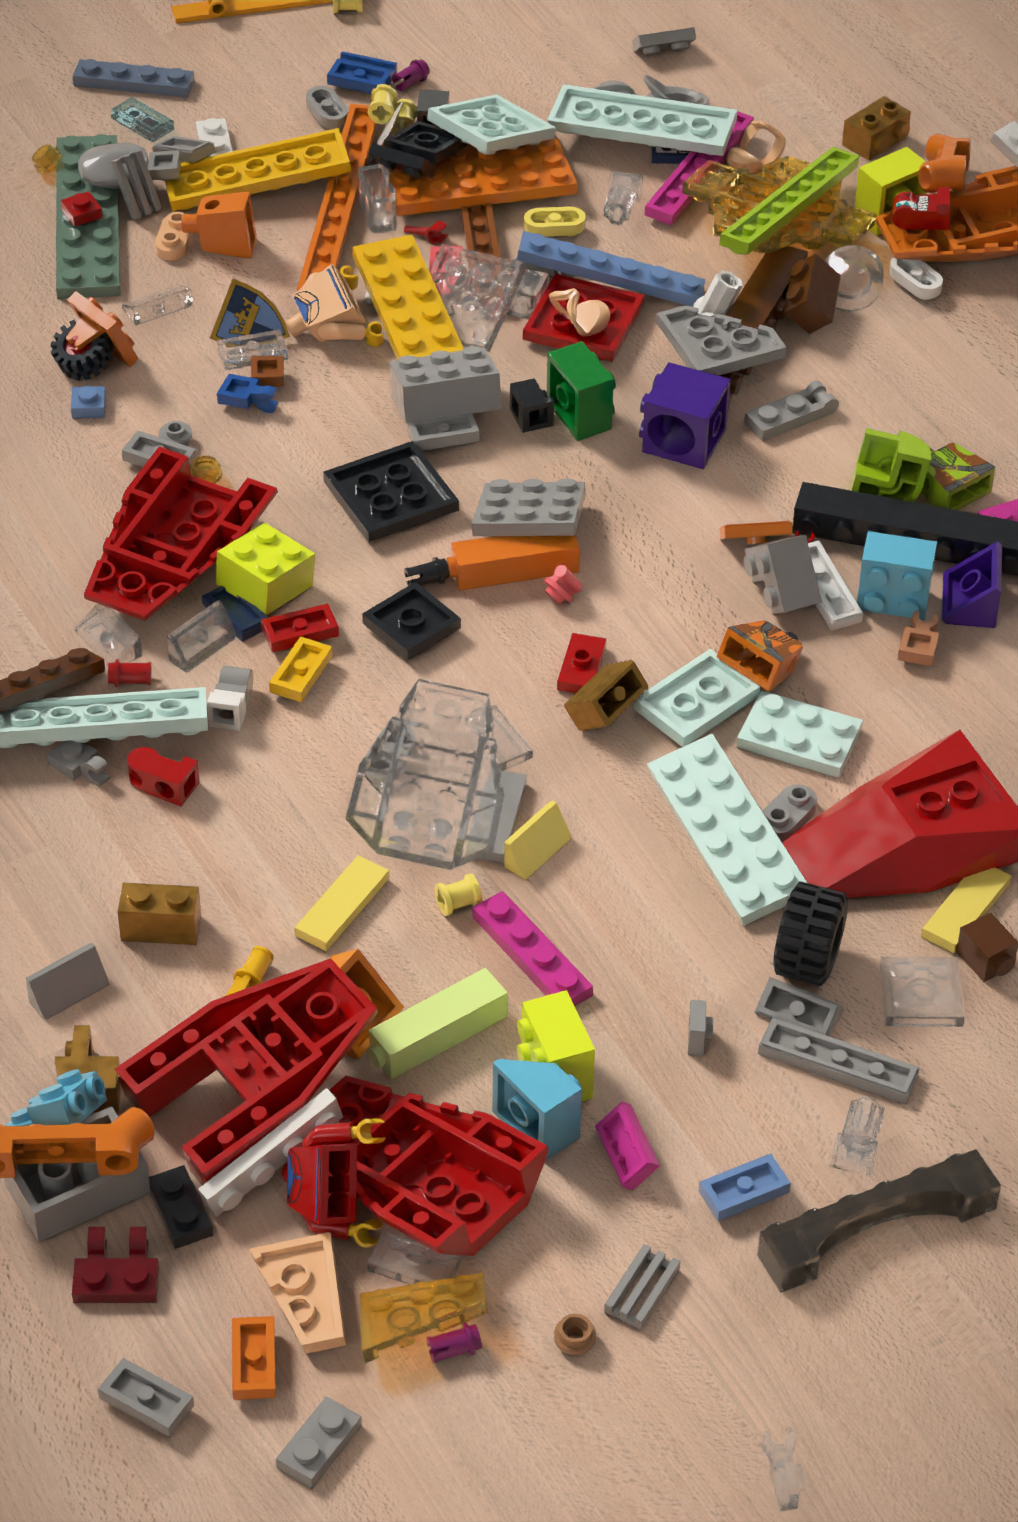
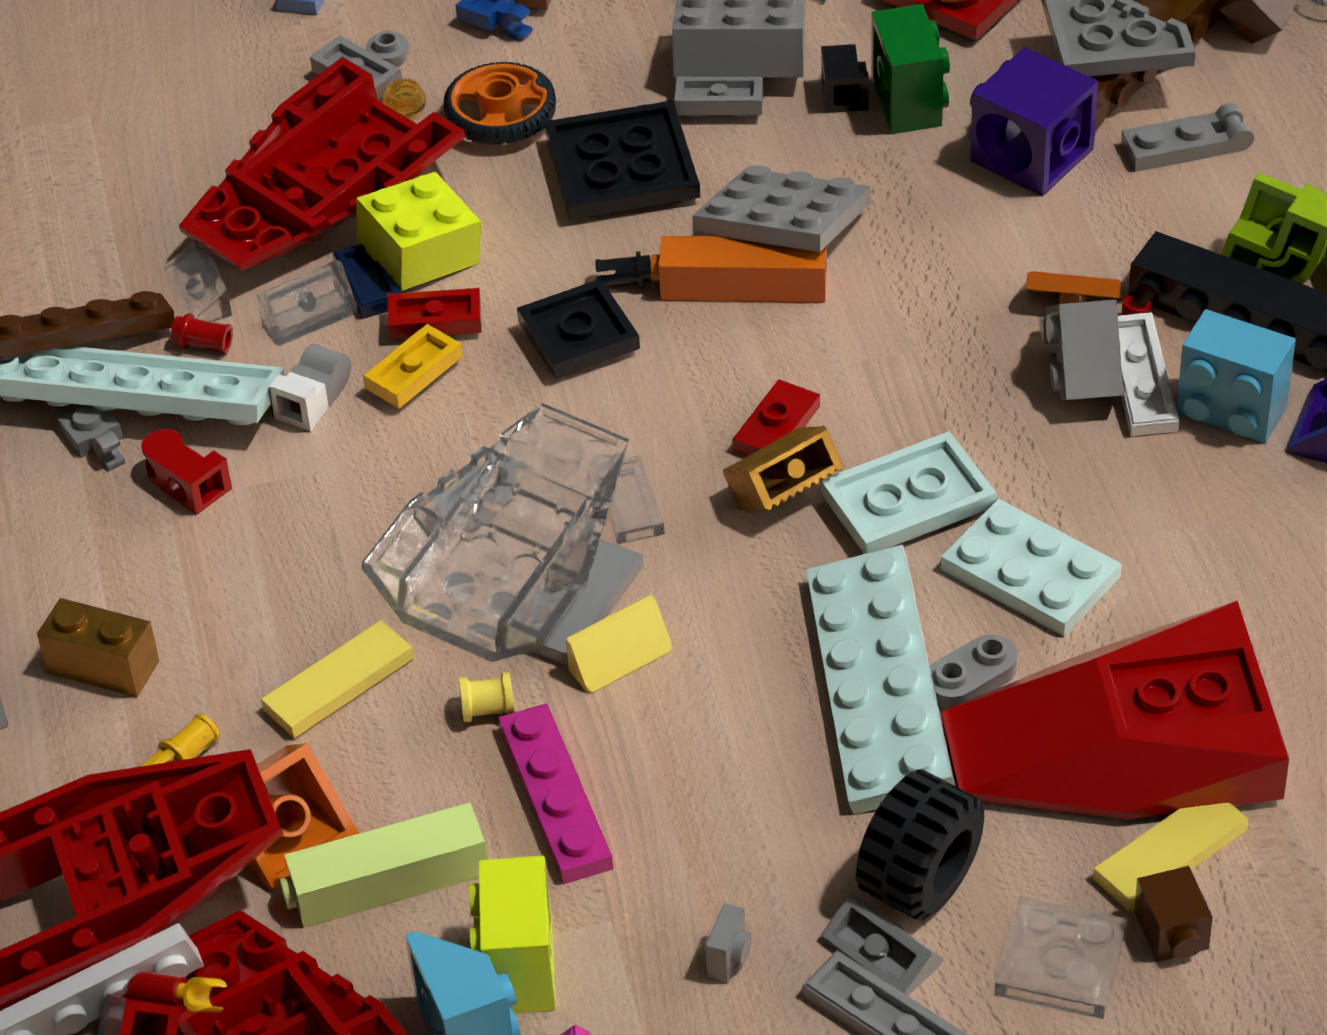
camera: 20 degrees right, 0 degrees up
(281, 455) = (501, 102): none -> orange wheel
(562, 585) = (790, 315): coral plate -> none
(760, 652) = (1013, 448): orange torso -> none
(919, 641) = (1242, 473): nougat plate -> none

